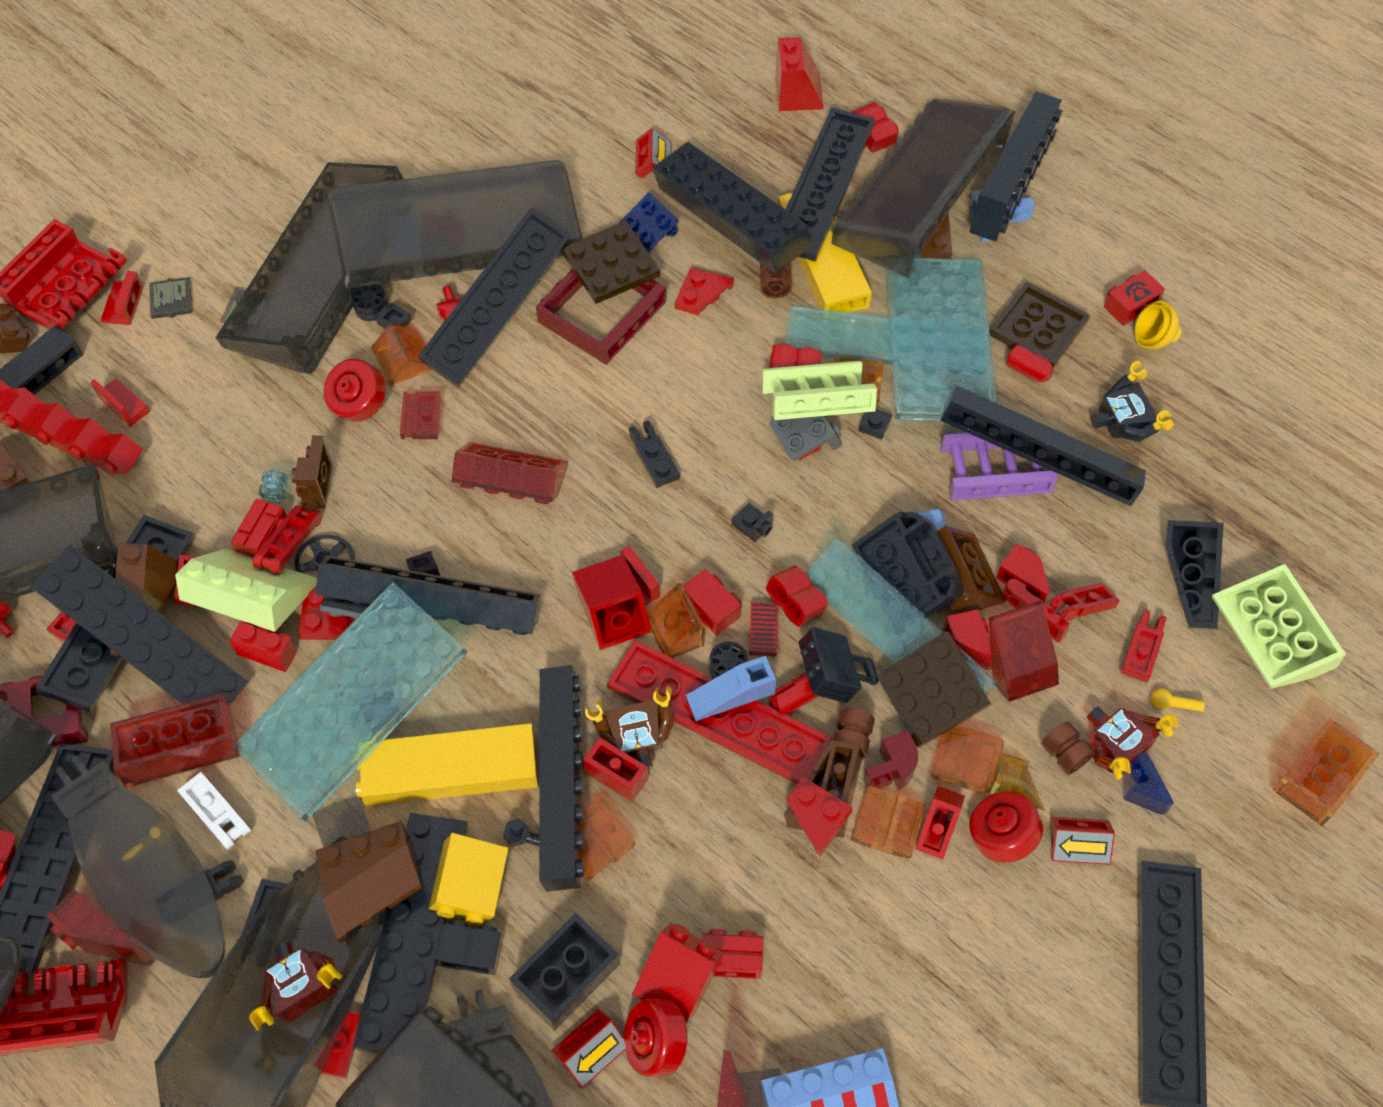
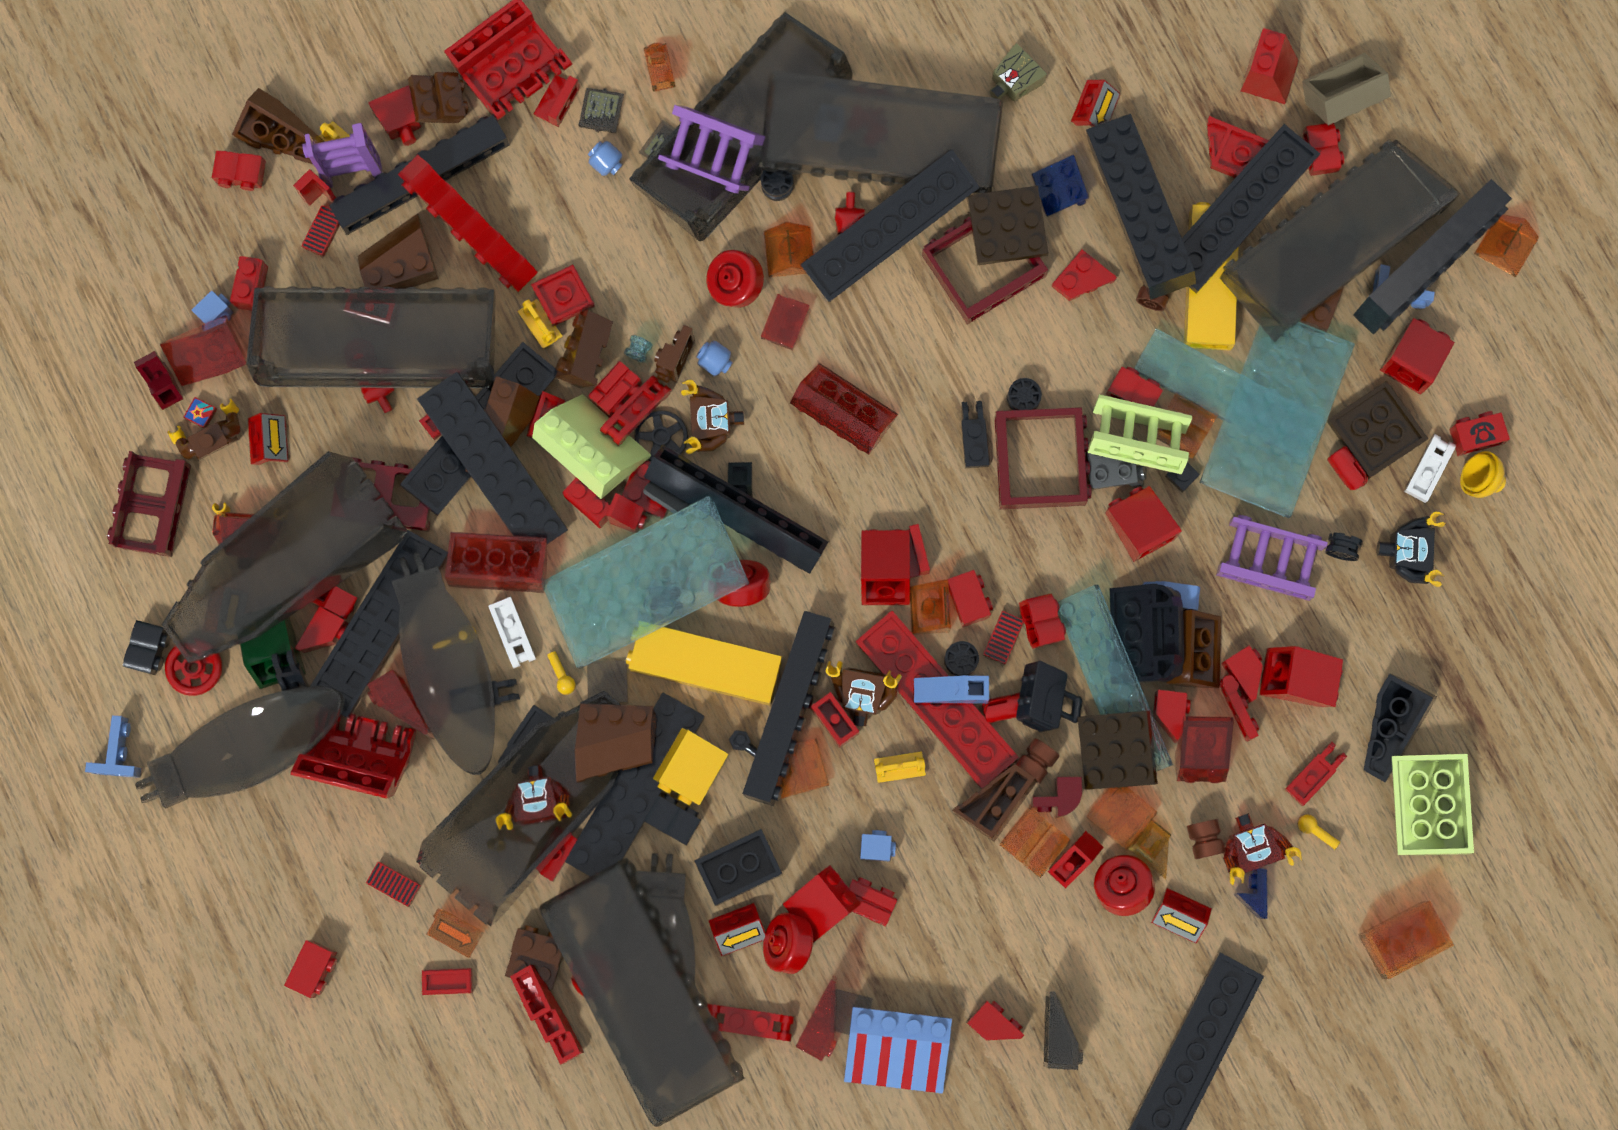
camera: 25 degrees right, 20 degrees up
(121, 401) = (531, 211): red panel -> none
(158, 496) = (538, 323): none -> yellow hinge
(176, 463) = (562, 295): none -> red plate
(186, 331) = (605, 158): none -> medium blue head
(213, 502) = (583, 349): none -> reddish brown wedge
(218, 242) = (659, 66): none -> clear orange slope
(280, 260) = (727, 132): none -> medium lavender fence
(293, 844) = (565, 683): none -> yellow bar
(306, 639) = (626, 514): none -> red slope
(357, 468) = (714, 358): none -> medium blue head
(370, 522) = (709, 418): none -> reddish brown torso
(393, 315) = (793, 209): black plate -> none
(471, 669) = (755, 591): none -> red wheel
(572, 148) = (1017, 75): none -> olive torso
(687, 404) = (1024, 395): none -> black wheel
(707, 797) = (899, 767): none -> yellow hinge
(716, 890) = (877, 846): none -> medium blue brick
(741, 490) = (1083, 466): none -> dark red window
(753, 522) = (1034, 535): black bracket -> none
(789, 149) = (1231, 147): none -> red wing
(818, 813) = (977, 822): red wing -> none
(858, 472) = (1142, 522): none -> red slope
(873, 72) = (1346, 88): none -> dark tan piece
(933, 1041) = (993, 1025): none -> red slope
(1013, 1019) = (1060, 1043): none -> clear smoke slope
(1043, 445) = (1314, 563): black brick -> none
(1044, 255) = (1418, 356): none -> red slope
(1065, 423) = (1343, 547): none -> black wheel
(1074, 148) = (1508, 244): none -> clear orange slope
(1082, 556) = (1301, 676): none -> red slope
(1084, 601) = (1283, 718): red hinge -> none
(1105, 341) = (1429, 469): none -> white plate

